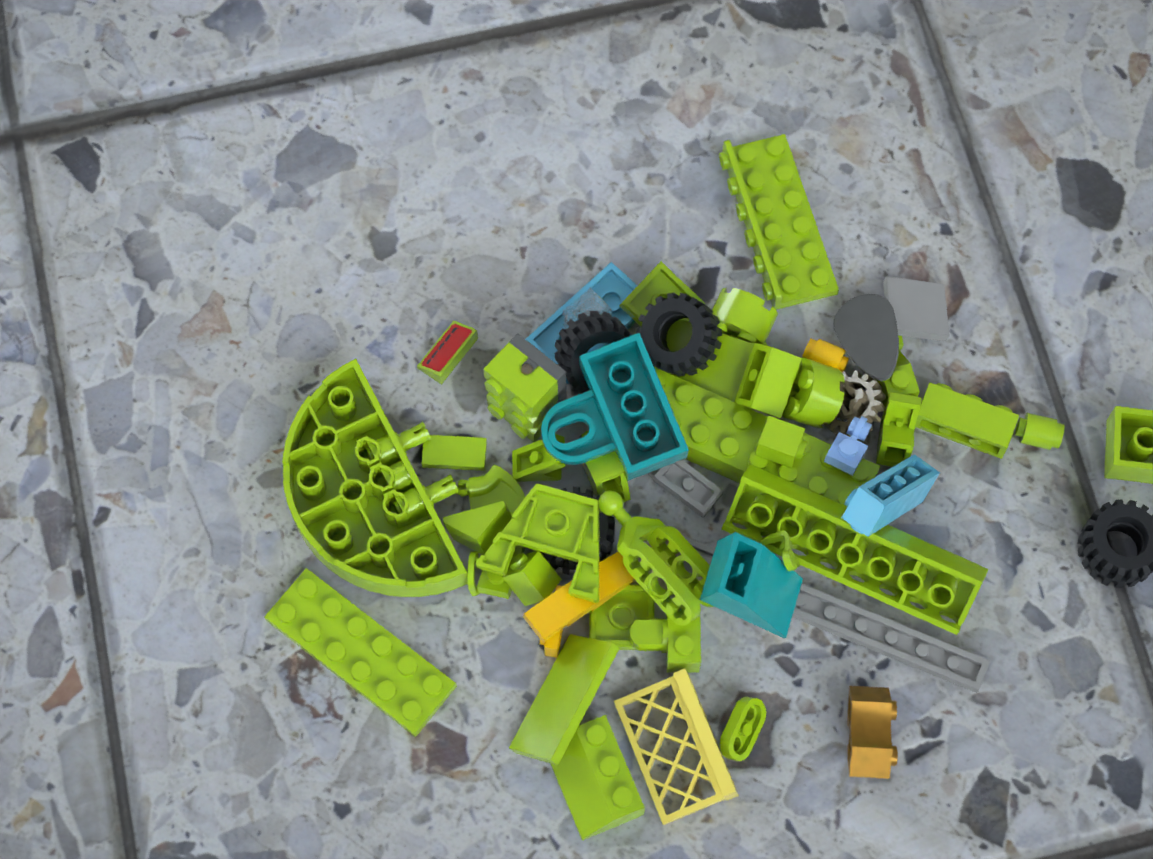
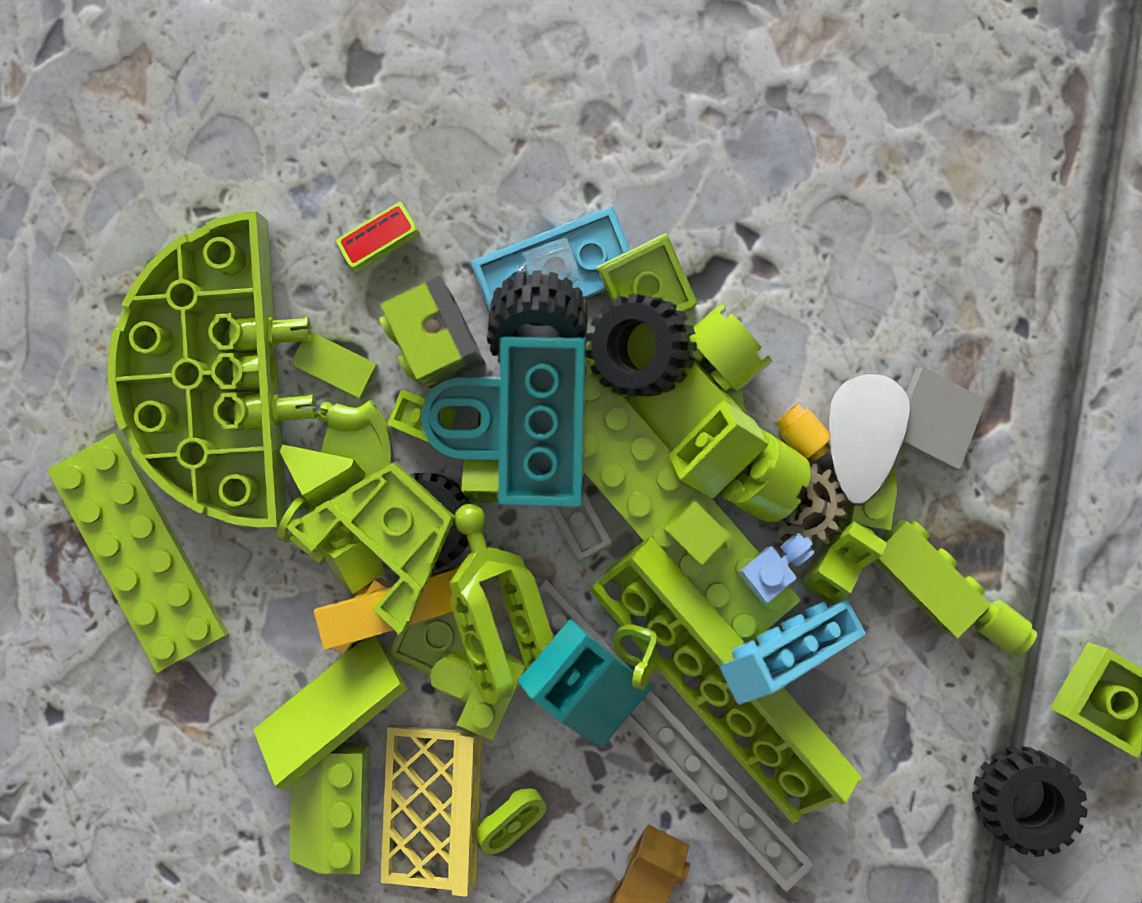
camera: 25 degrees right, 20 degrees up
(778, 222) = (831, 235): lime bracket -> none

